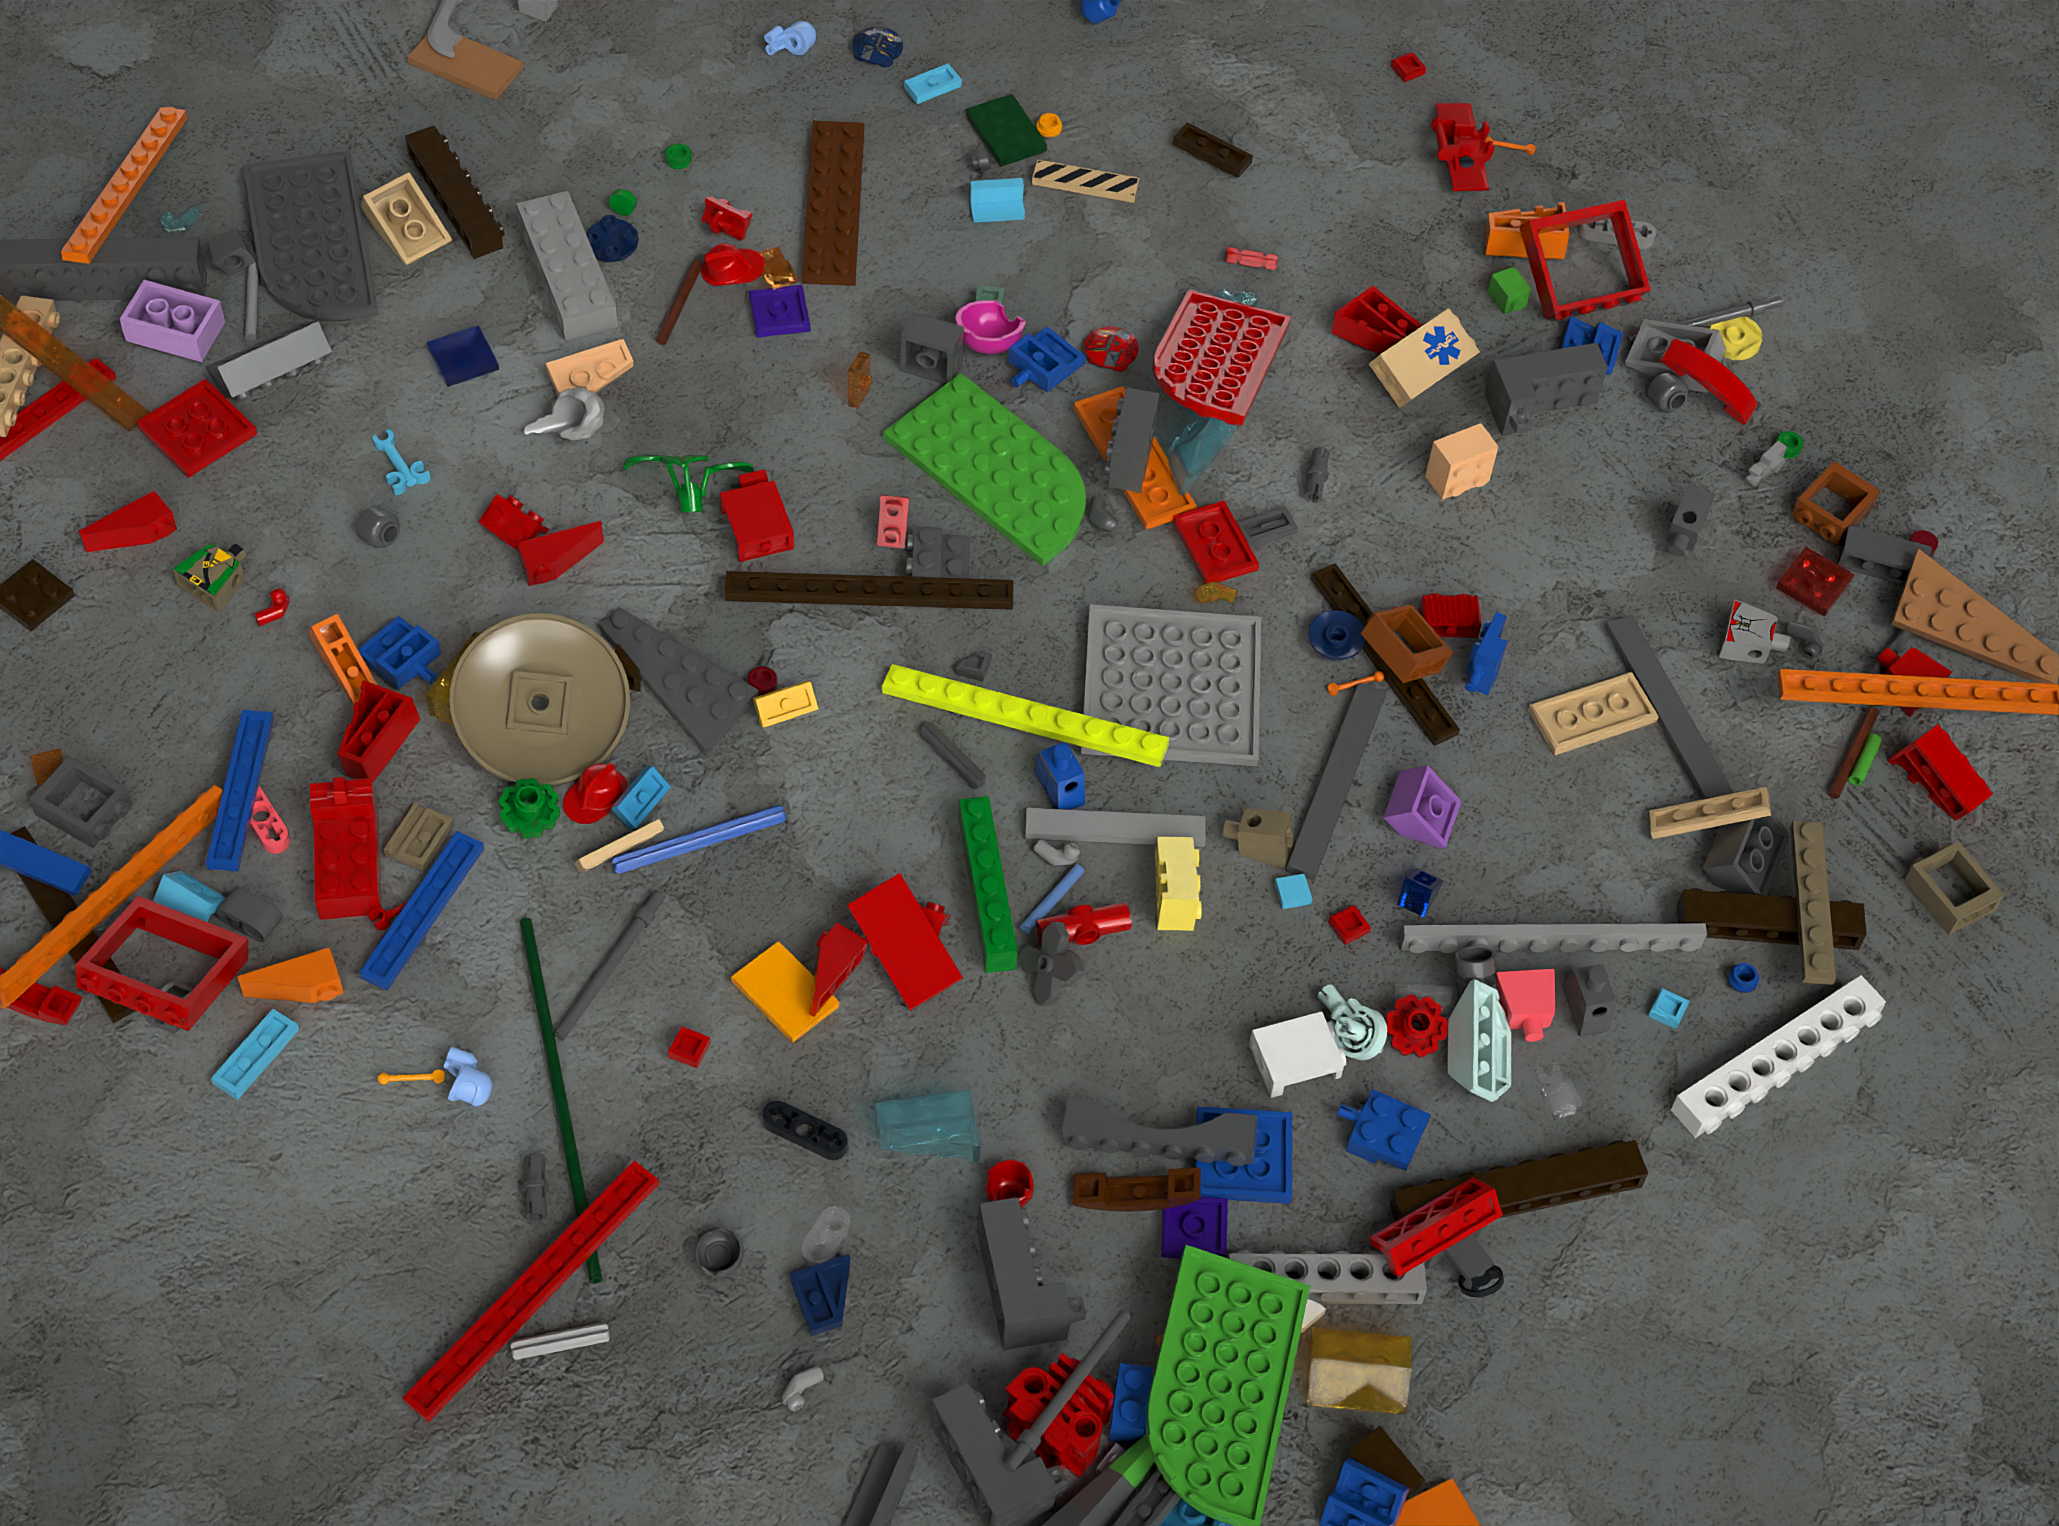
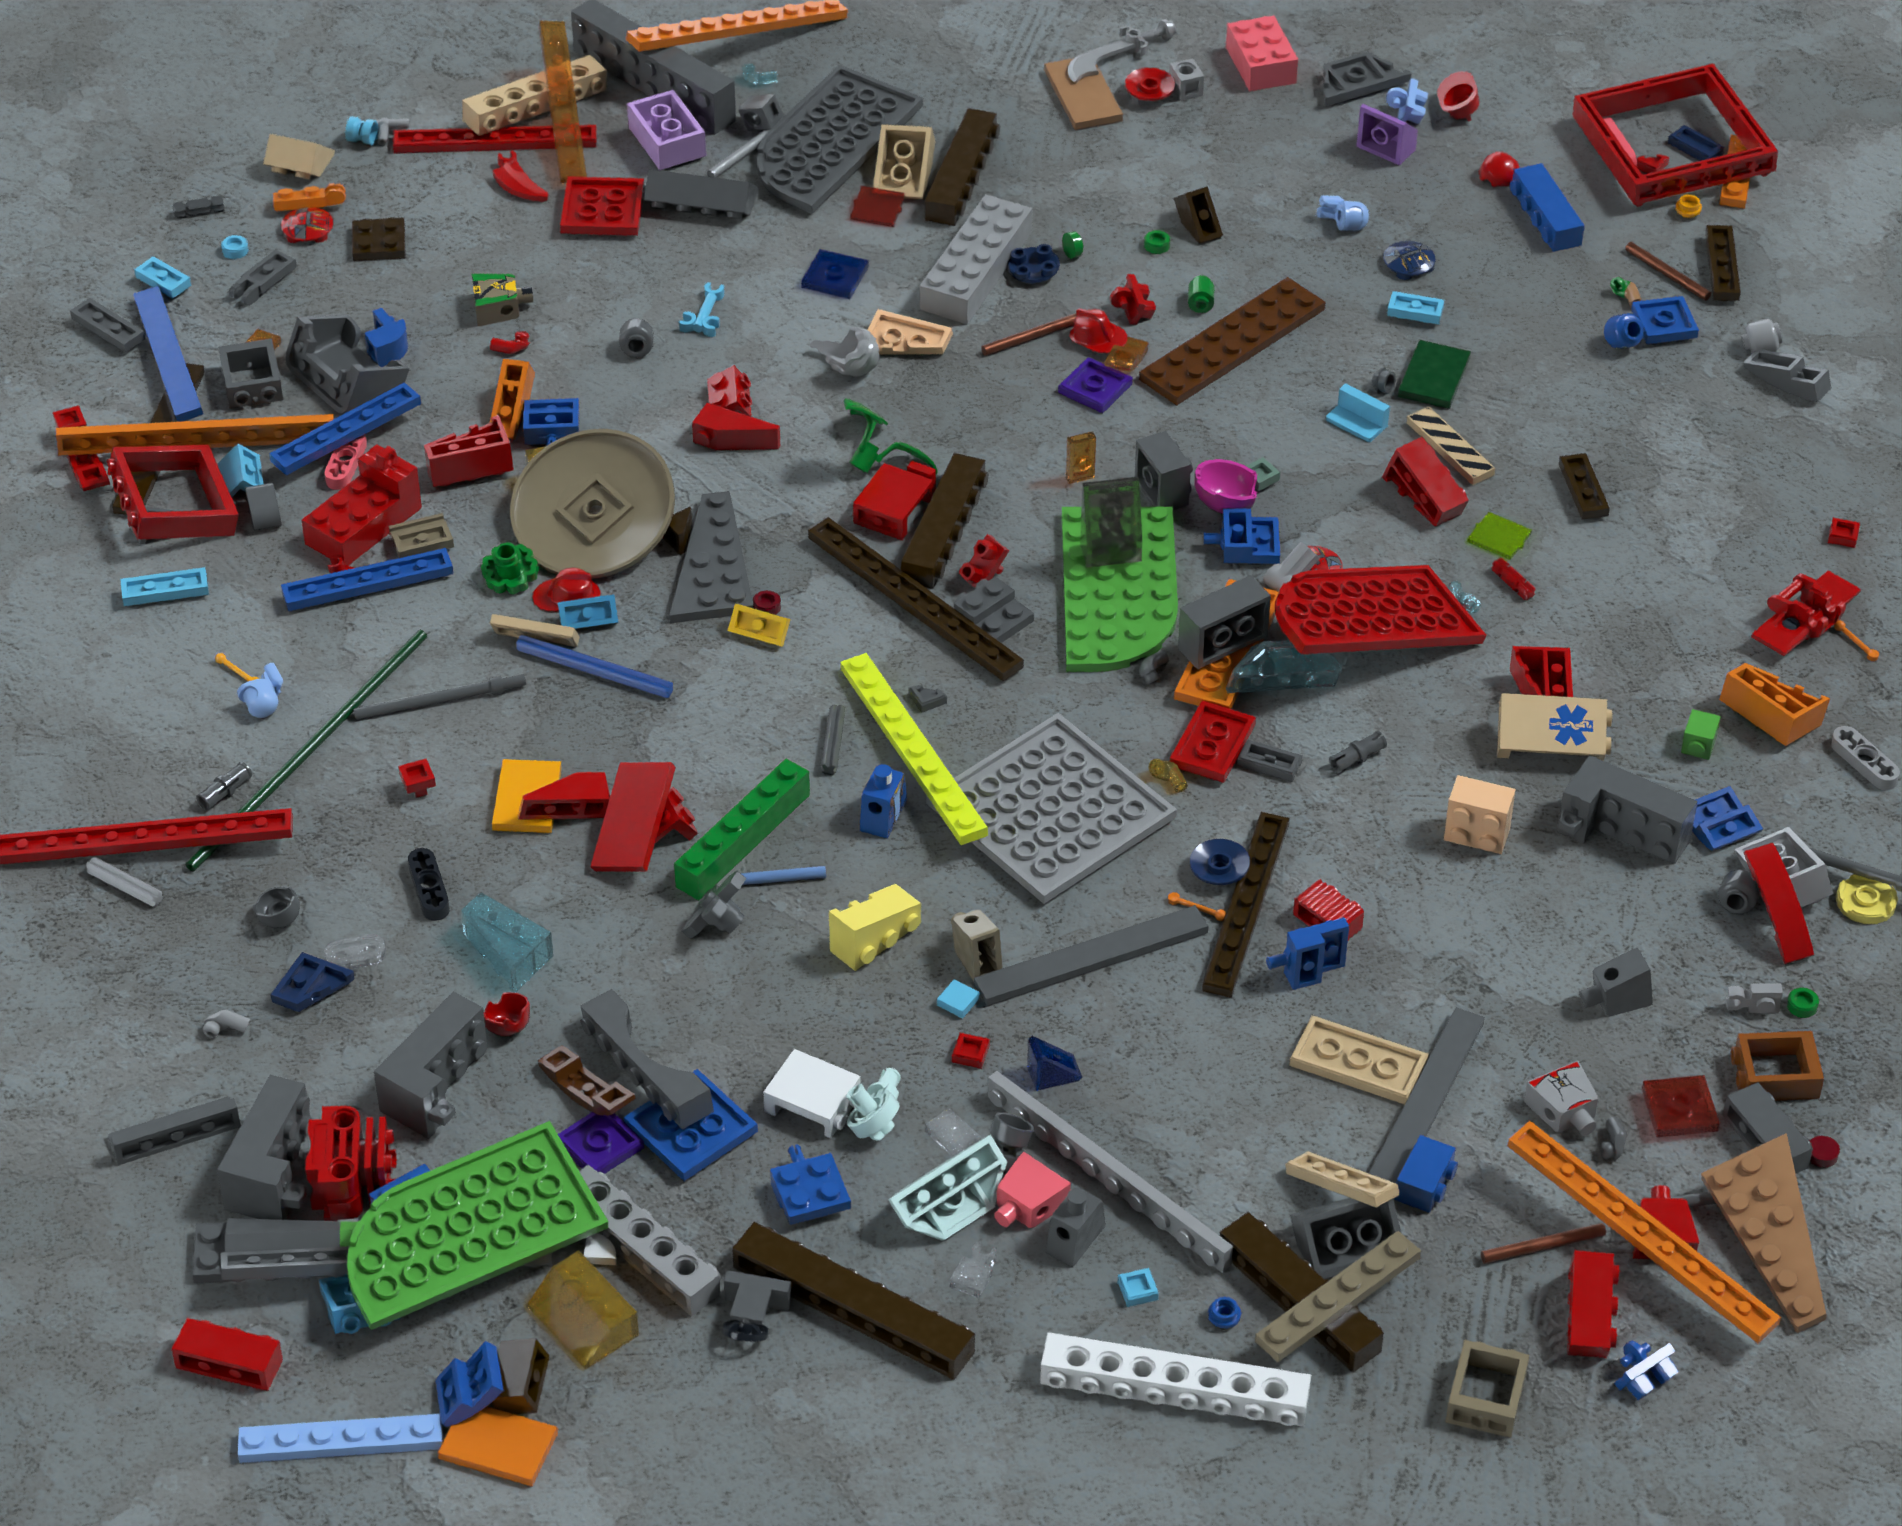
camera: 50 degrees right, 10 degrees down
(85, 456) = (516, 181): none -> red piece
(132, 525) = (486, 236): red slope -> none
(154, 740) = (330, 363): none -> dark grey windscreen
(165, 681) = (387, 340): none -> blue brick
(298, 979) = (243, 563): orange slope -> none
(424, 272) = (877, 206): none -> clear red piece
(514, 21) = (1150, 84): none -> red dish
(687, 111) = (1198, 214): none -> dark brown slope
(769, 178) = (1201, 294): none -> green brick
(813, 507) = (945, 519): none -> dark brown brick
(967, 420) = (1111, 522): none -> clear smoke slope
(1030, 1439) = (292, 1143): dark grey bar -> none
(1049, 125) = (1472, 390): light orange plate -> none
(1057, 856) = (819, 852): light grey arm -> none
(1089, 924) = (778, 905): red piece -> none
(1110, 369) = (1298, 561): none -> light grey piece
(1111, 826) = (885, 864): light grey tile -> none
(1114, 222) = (1426, 482): none -> red wedge
(1199, 230) = (1499, 535): none -> clear neon green piece
(1405, 1037) = (922, 1143): red plant -> none
(1422, 807) = (1127, 1017): medium lavender slope -> none
(1430, 648) = (1251, 920): dark orange window -> none
(1439, 1227) = (747, 1261): red fence -> none
(1628, 248) = (1800, 704): red window -> none
(1739, 761) = (1426, 1173): none -> blue brick
(1865, 759) = (1544, 1254): bright green piece -> none
(2015, 789) = (1636, 1378): none -> hips

